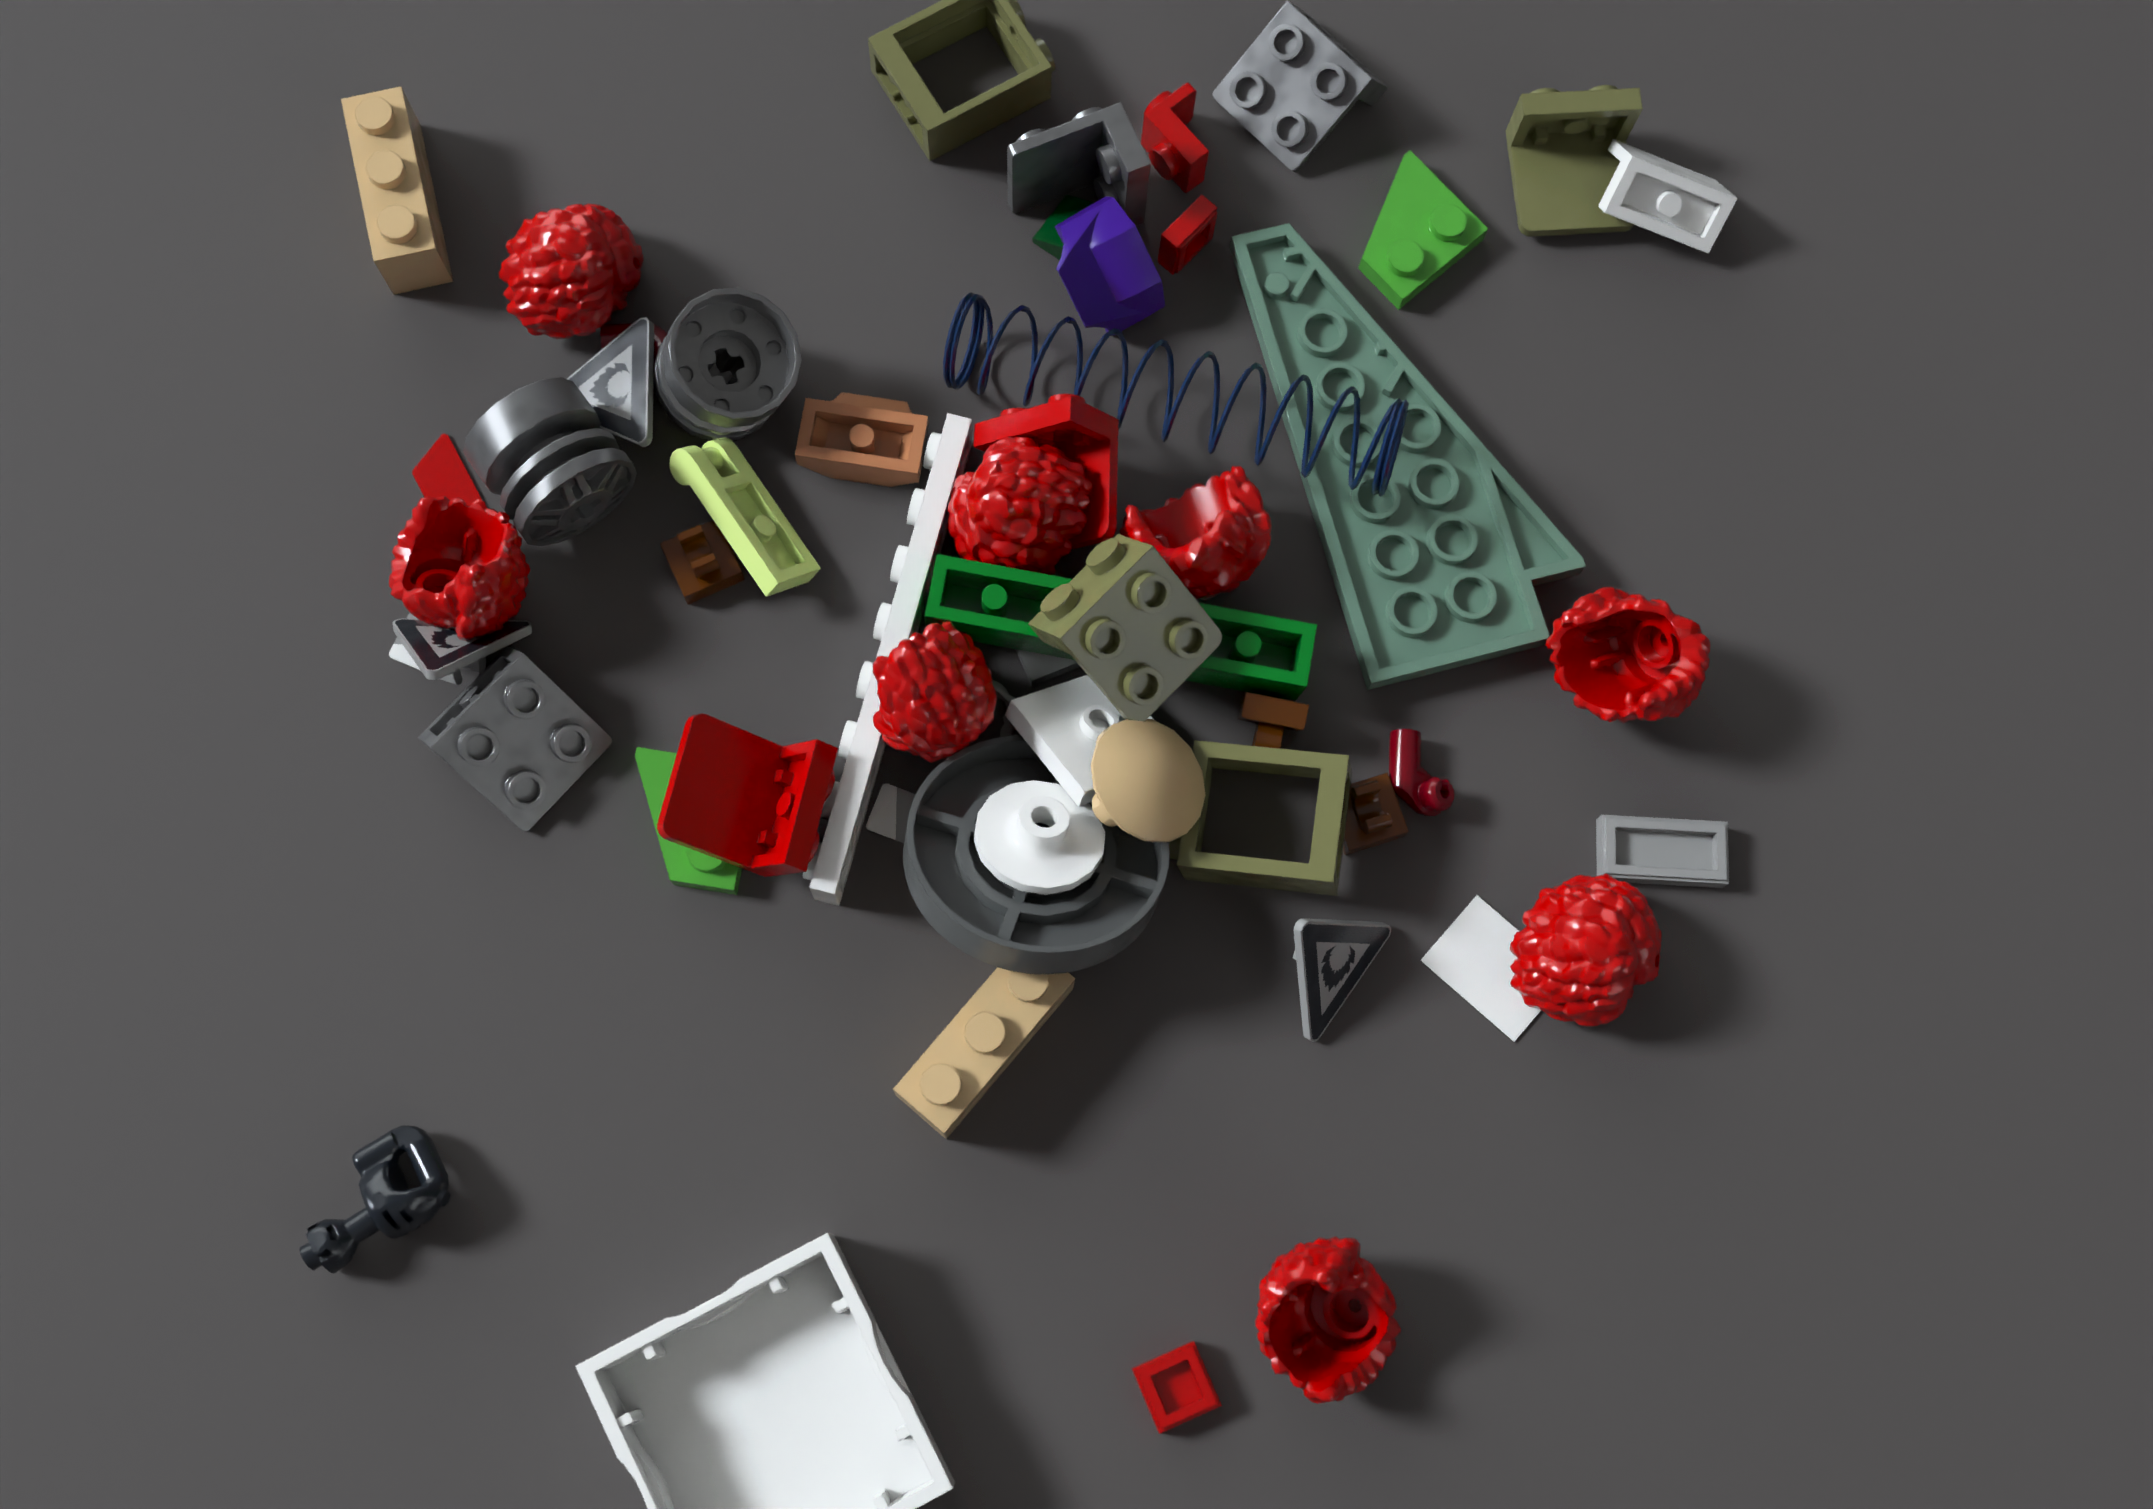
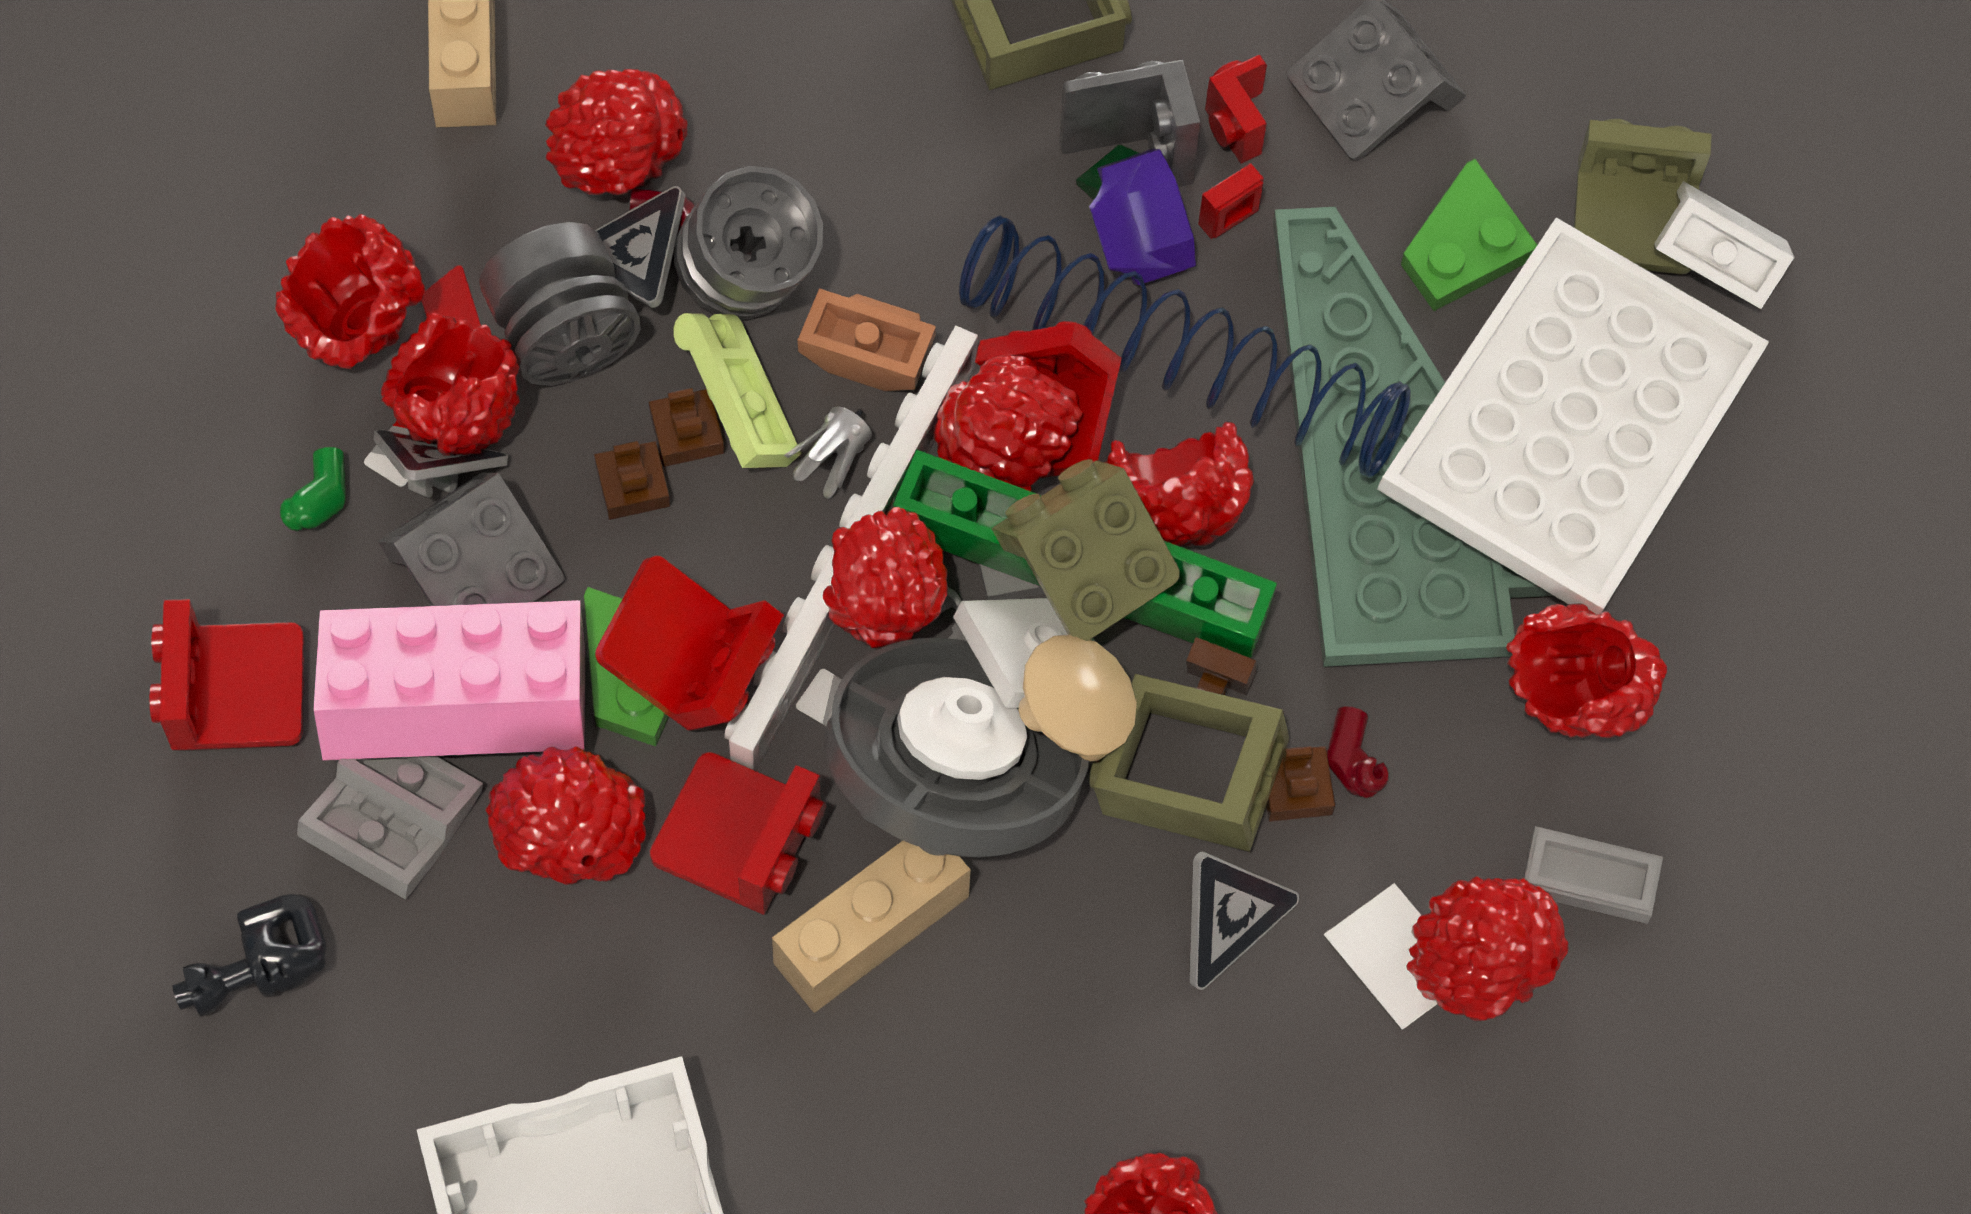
camera: 15 degrees right, 10 degrees down
(291, 917) = (226, 682): none -> red bracket
(334, 487) = (348, 291): none -> red hair
(352, 702) = (322, 496): none -> green arm
(484, 1015) = (390, 816): none -> light grey slope
(516, 877) = (450, 680): none -> bright pink brick
(659, 626) = (632, 479): none -> reddish brown tile
(662, 994) = (566, 817): none -> red hair
(835, 971) = (738, 830): none -> red bracket
(854, 540) = (840, 433): none -> flat silver piece
(1560, 399) = (1573, 417): none -> white plate

